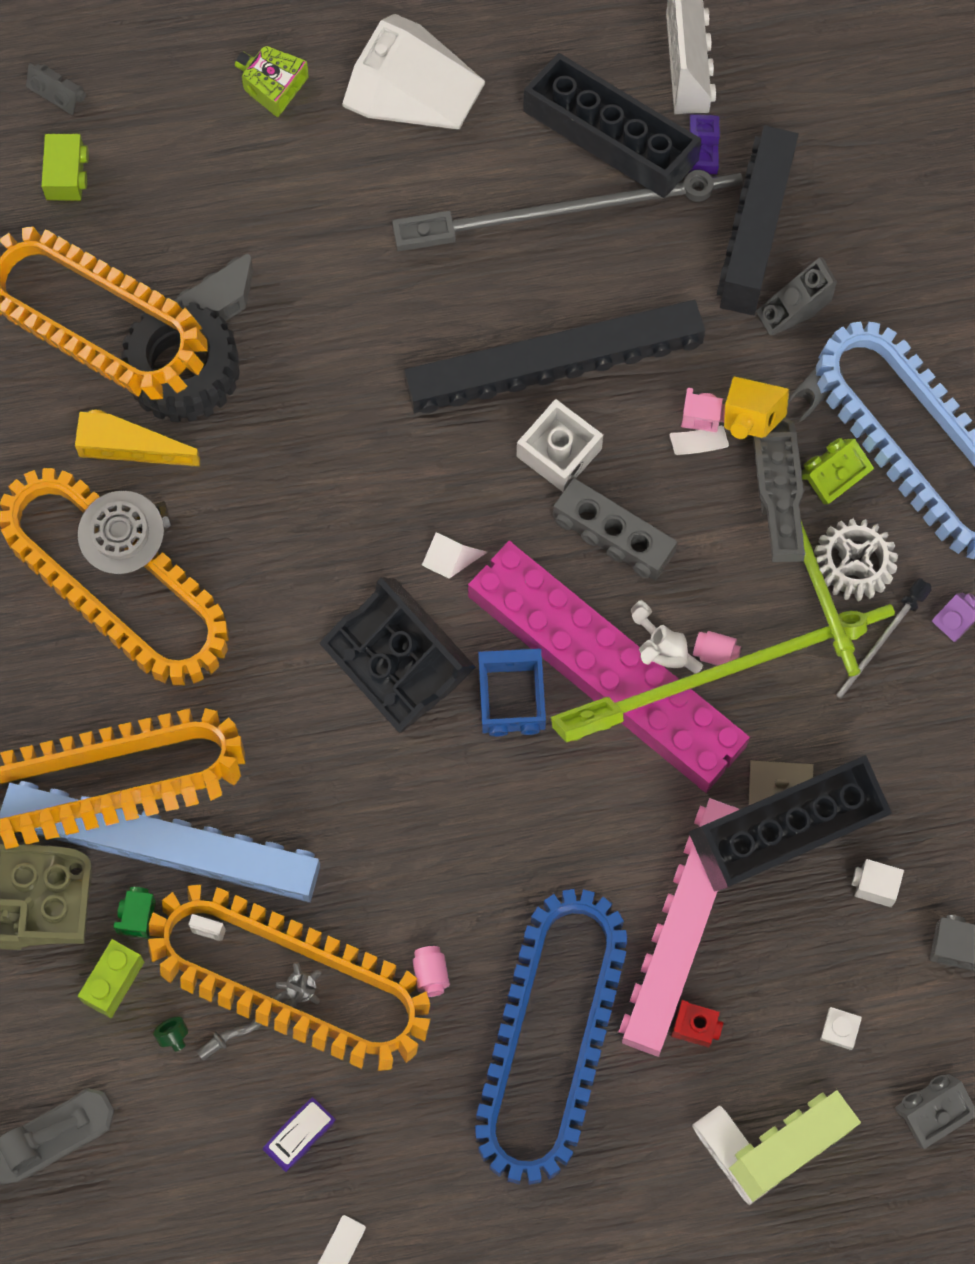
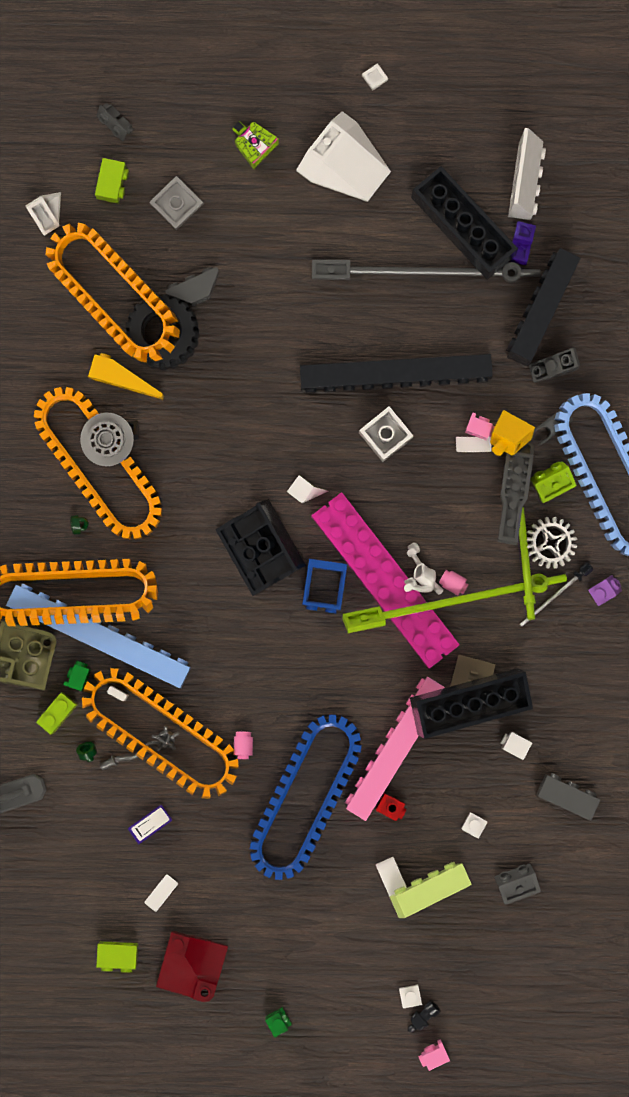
camera: 10 degrees right, 15 degrees up
(92, 674) = (75, 524): none -> dark green tile
(169, 180) = (176, 203): none -> light grey plate
(581, 498) = (390, 469): dark grey brick -> none

